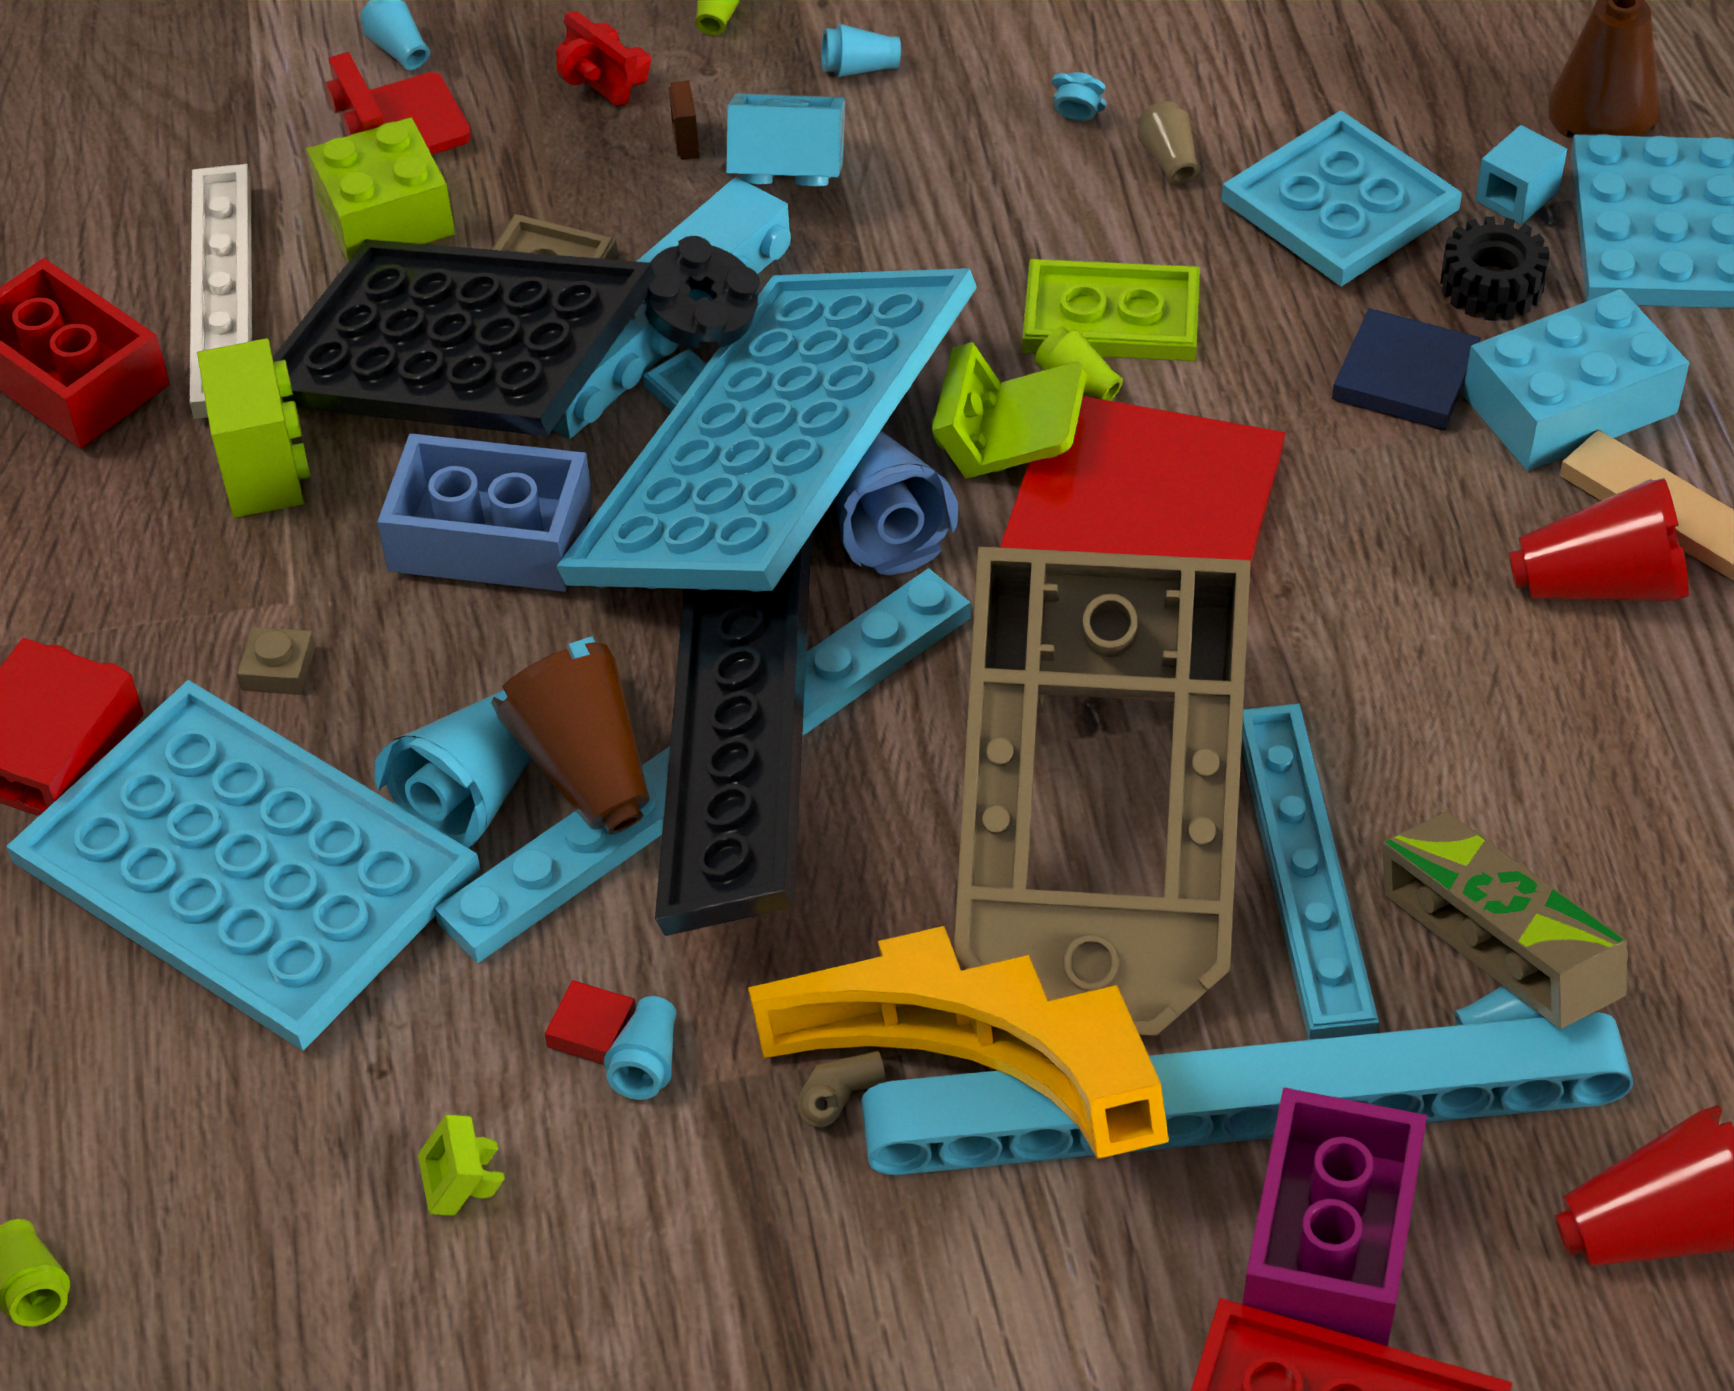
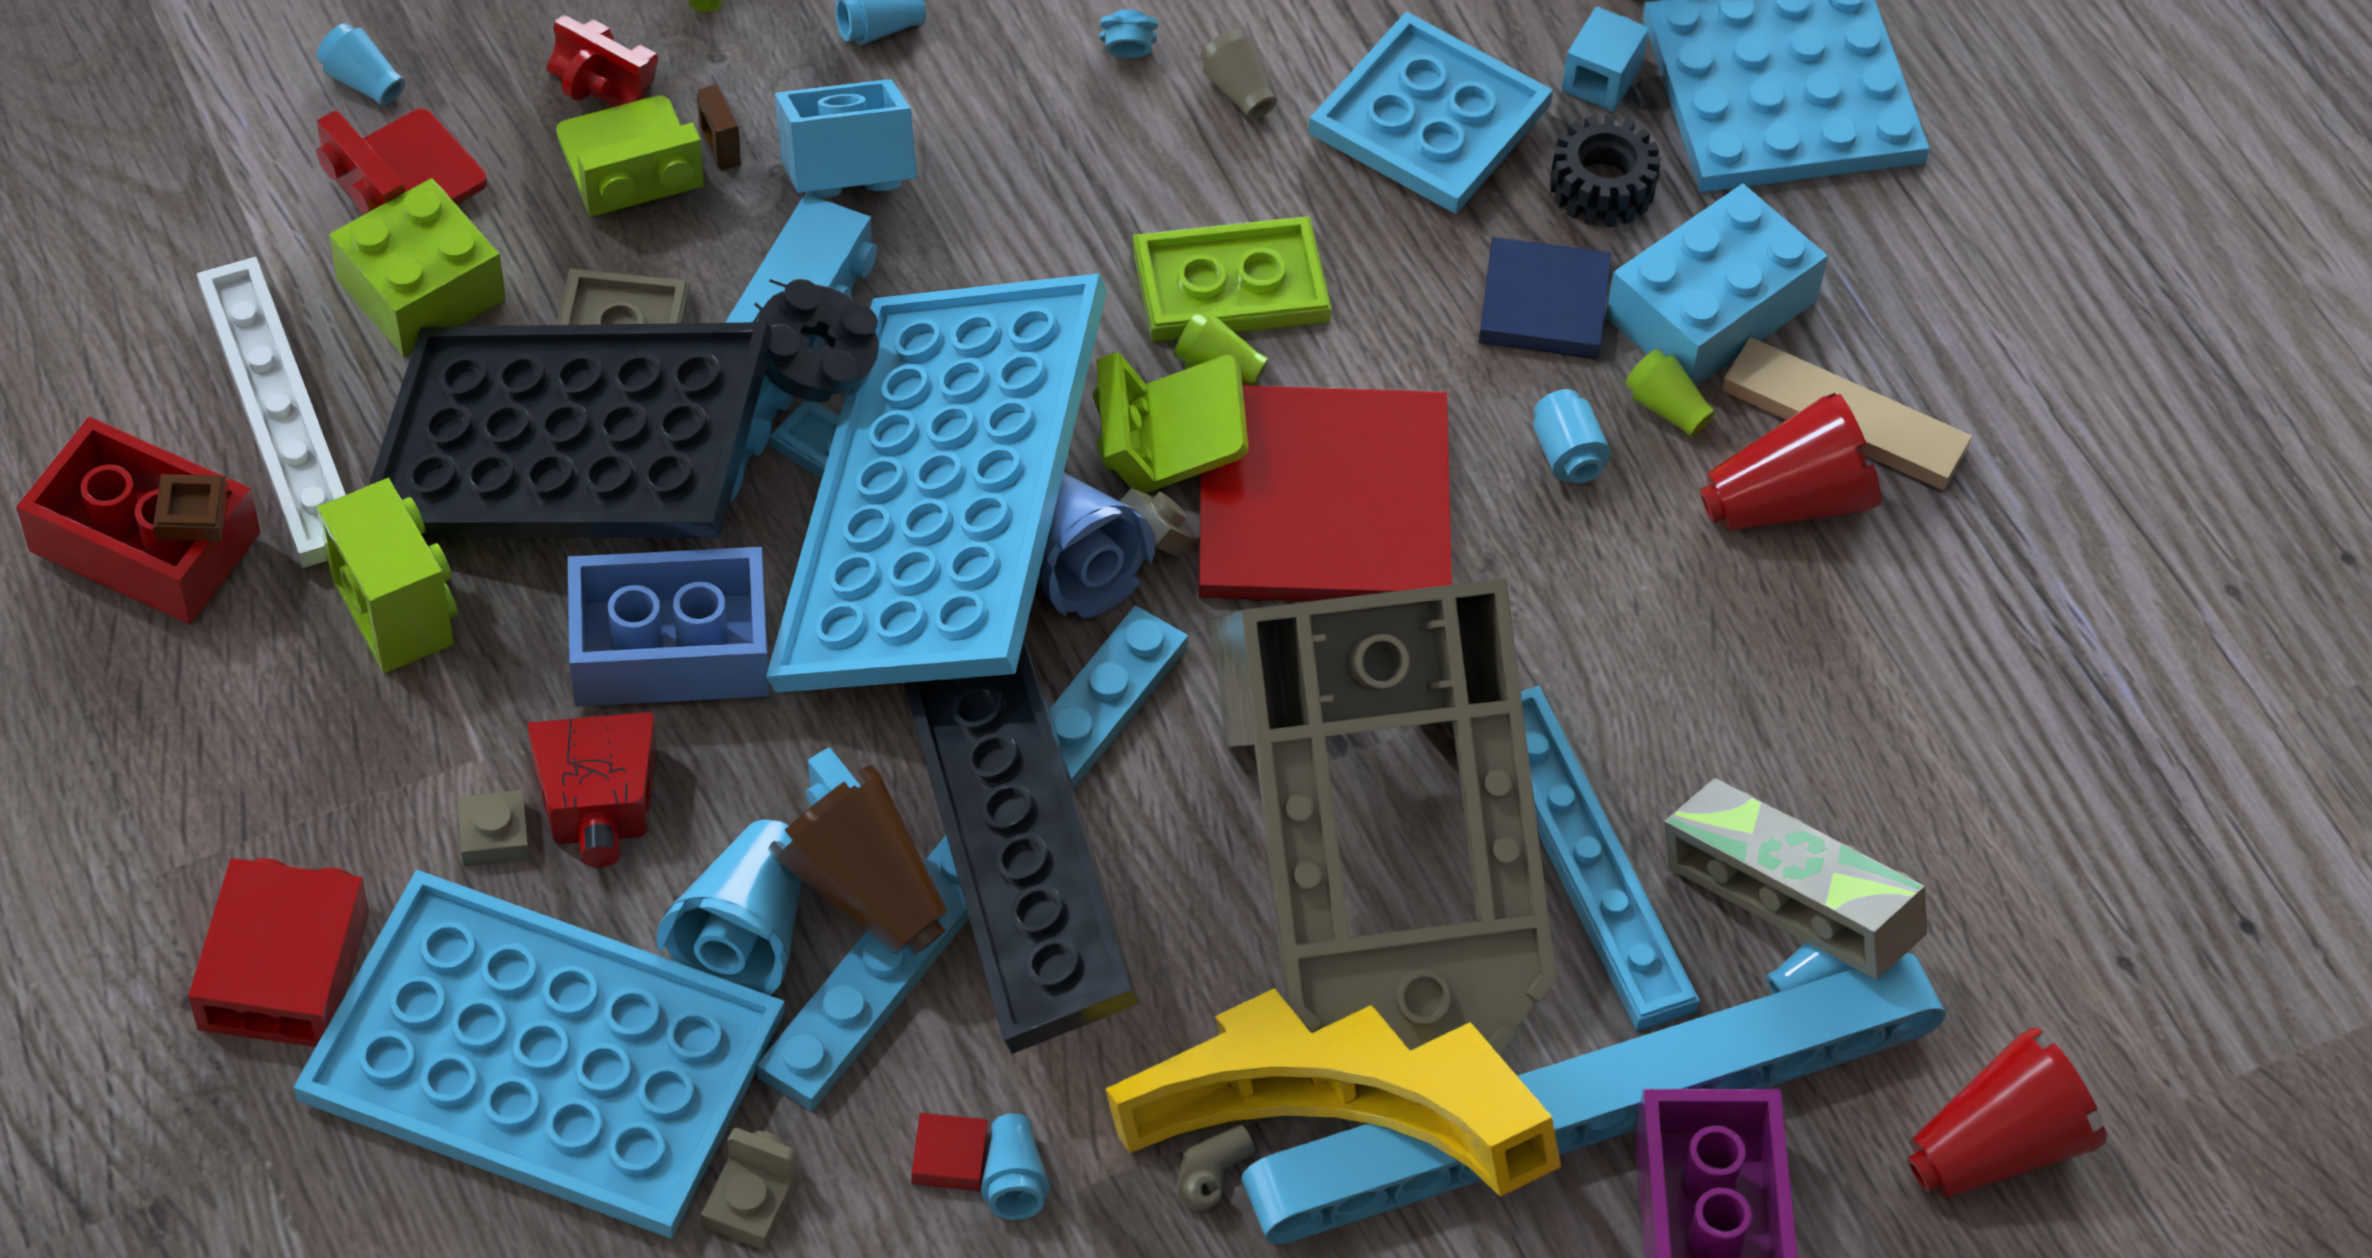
camera: 20 degrees left, 5 degrees up
(96, 340) = (191, 507): none -> reddish brown tile
(379, 633) = (596, 780): none -> red torso
(391, 1019) = (752, 1188): none -> dark tan bracket
(599, 133) = (631, 154): none -> lime bracket
(975, 499) = (1165, 520): none -> dark tan plate
(1394, 488) = (1570, 437): none -> medium azure brick
(1502, 463) = (1668, 391): none -> lime cone

